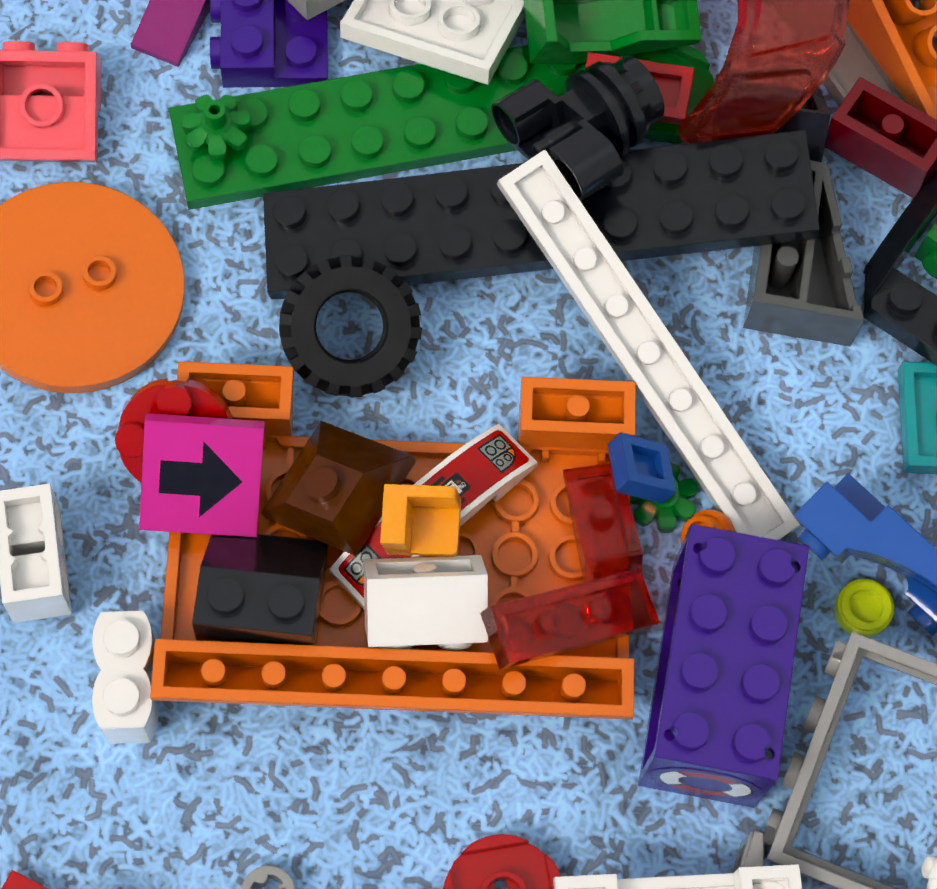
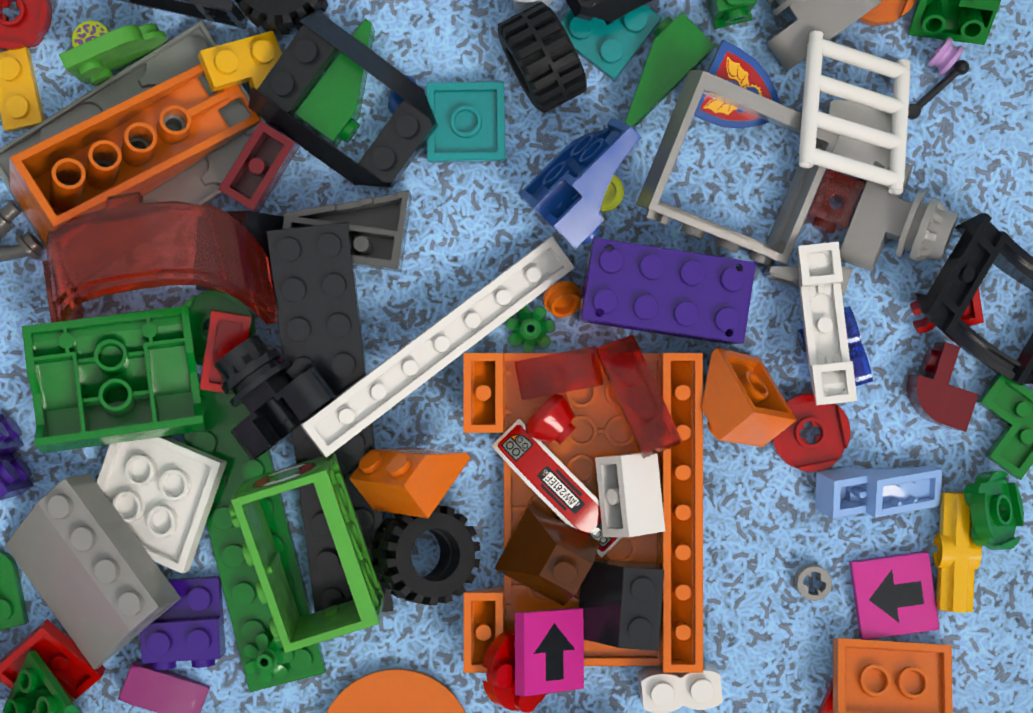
camera: 85 degrees left, 20 degrees up
(379, 207) = (273, 586): none -> bright green hose
(420, 520) = (579, 502): light orange panel -> none
(459, 296) = (407, 478): none -> orange slope
(535, 500) = (552, 420): none -> red cone
(559, 781) = (743, 400): none -> orange slope
(641, 468) = (524, 347): blue plate -> none

